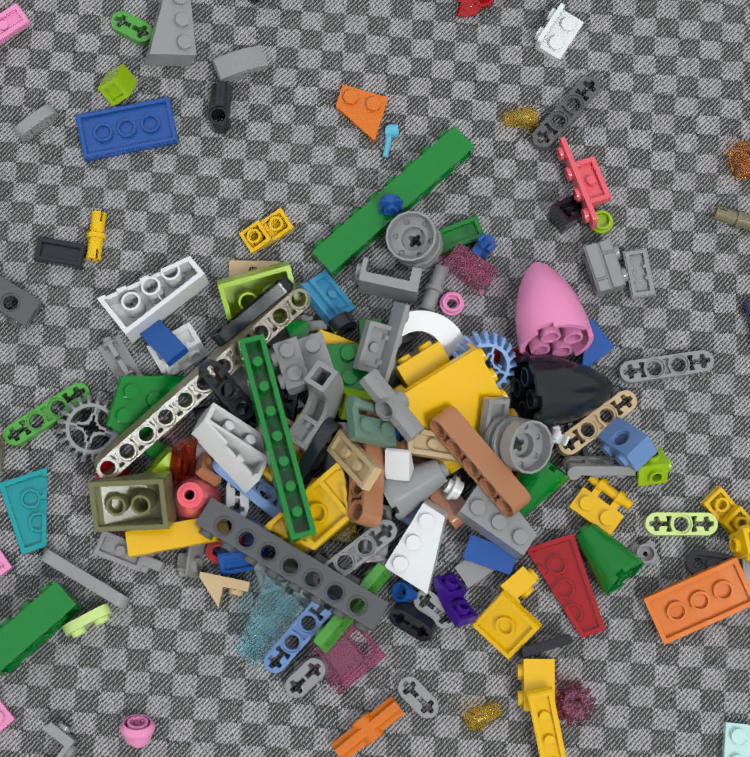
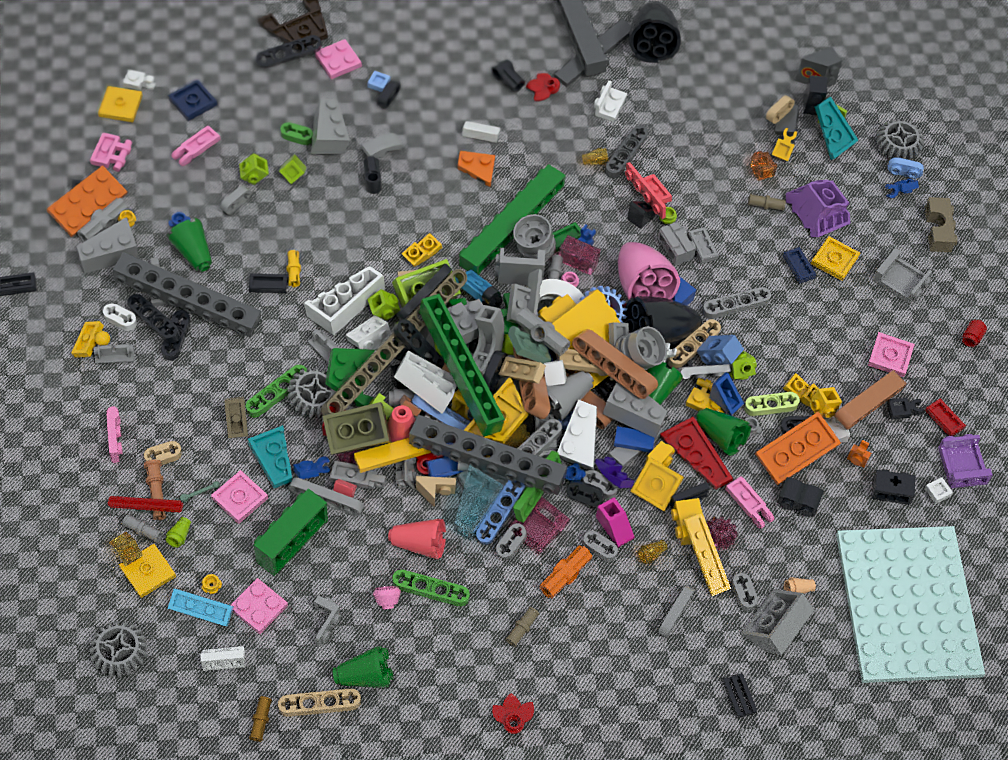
camera: 10 degrees left, 20 degrees down
(64, 81) = (253, 169): none -> lime brick
(69, 537) = (308, 469): none -> blue plate
(78, 626) = (338, 521): yellowish green plate -> none
(108, 573) = (345, 488): none -> coral slope
(127, 129) = (304, 198): blue tile -> none
(164, 343) = (359, 328): blue tile -> none
(183, 459) = (390, 395): clear red tile -> none
(192, 658) = (420, 537): none -> coral cone
(193, 727) = (432, 584): none -> bright green beam
(201, 312) = (384, 304): none -> lime brick
(376, 56) = (480, 131): none -> white slope
(390, 205) = (512, 215): blue plate -> none
(391, 131) = (501, 176): medium azure hand -> none
(442, 672) = (615, 522): none -> dark pink slope
(453, 488) = (597, 393): white plate -> none
(620, 662) = (749, 501): none -> bright pink hinge
(622, 513) = (725, 394): none -> blue slope
(688, 668) = (800, 497): none -> black brick

